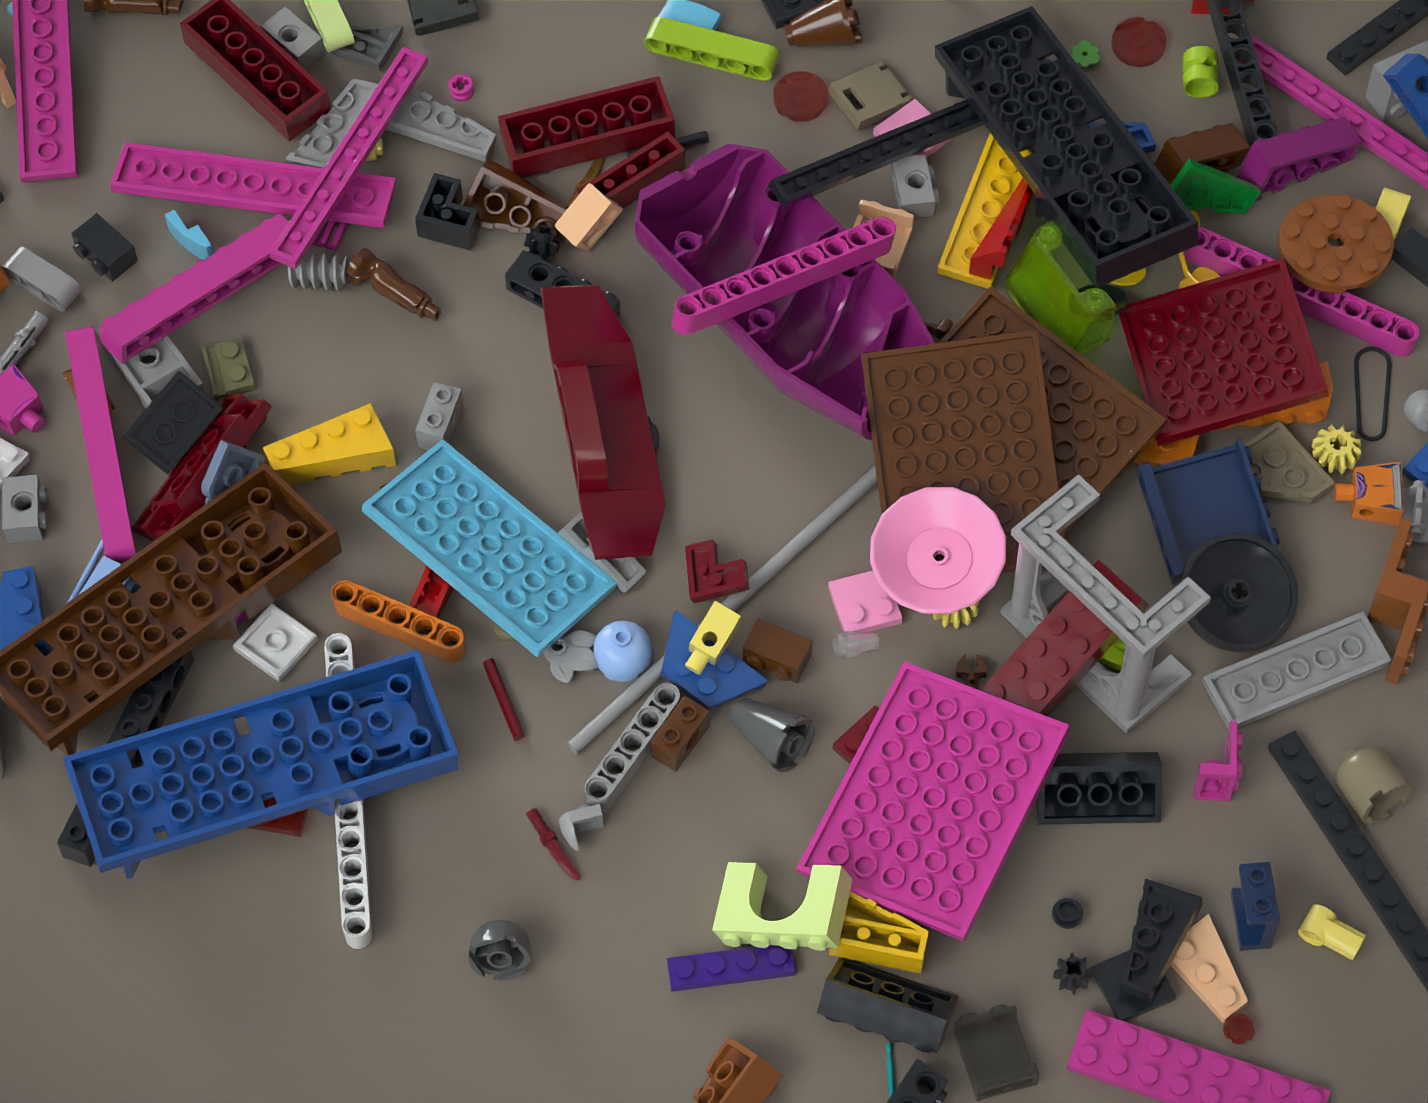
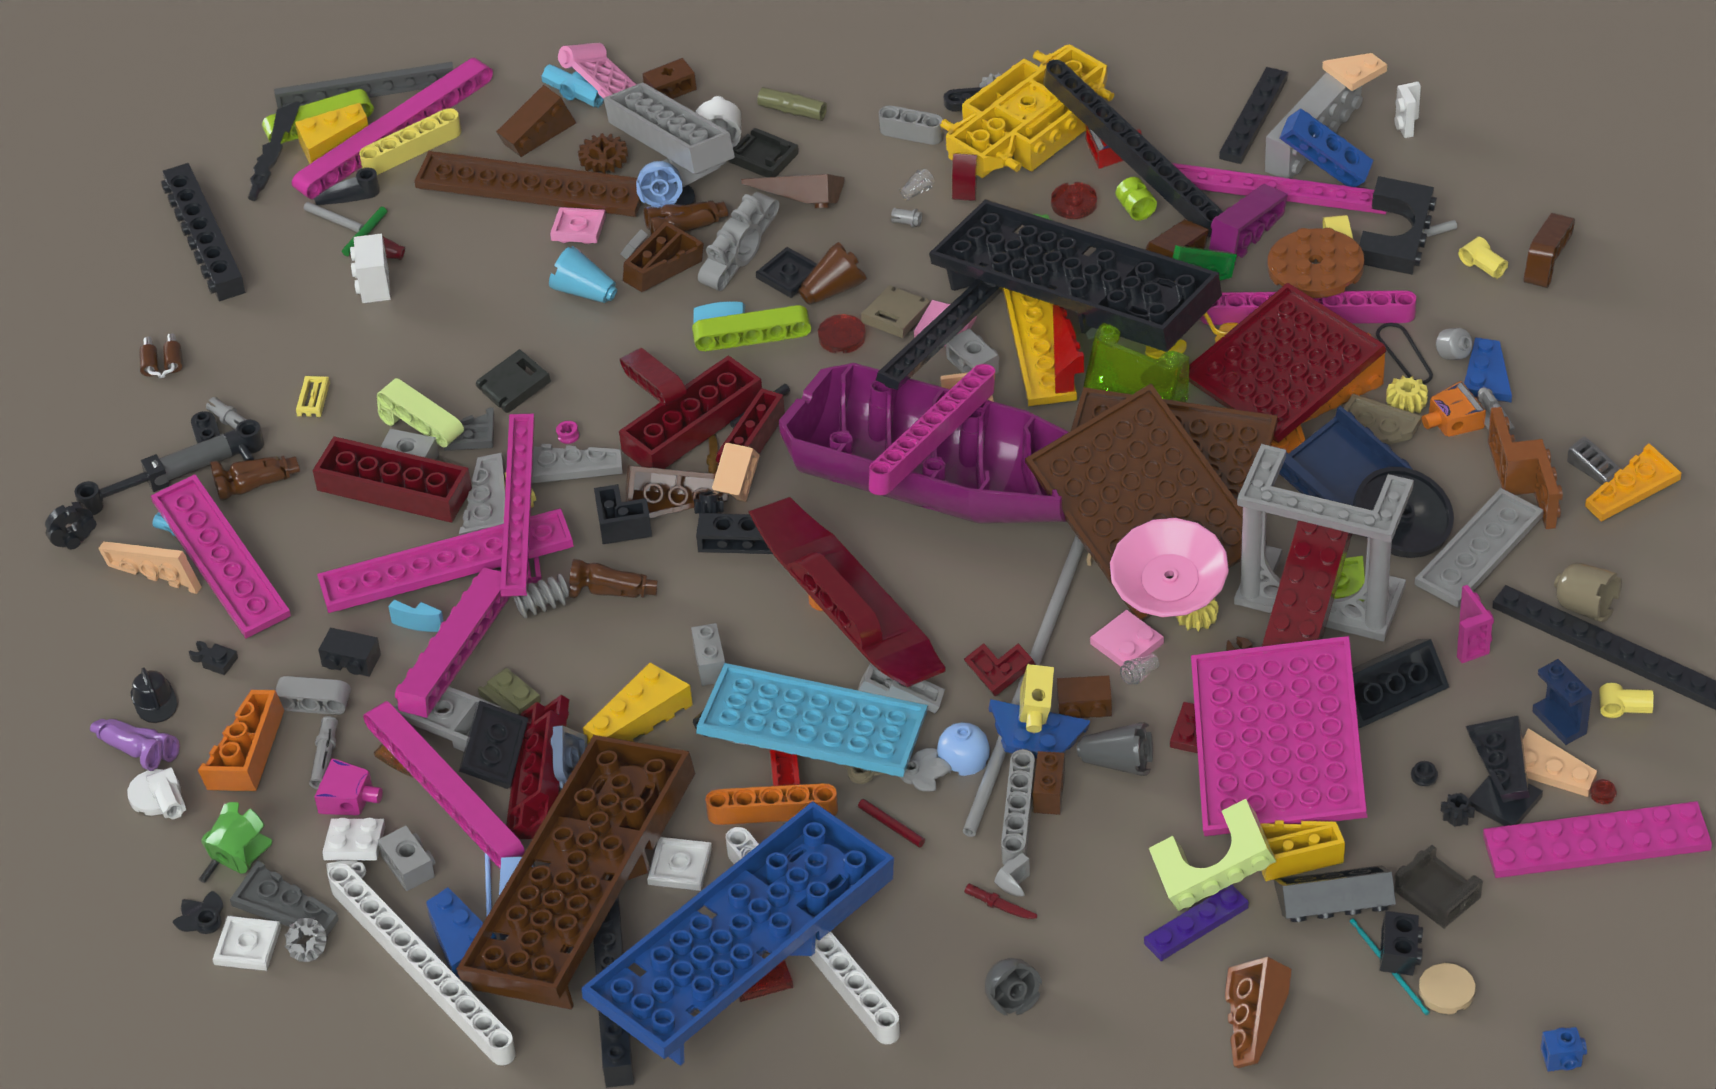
camera: 25 degrees left, 15 degrees down
(570, 66) = (653, 376): none -> dark red beam

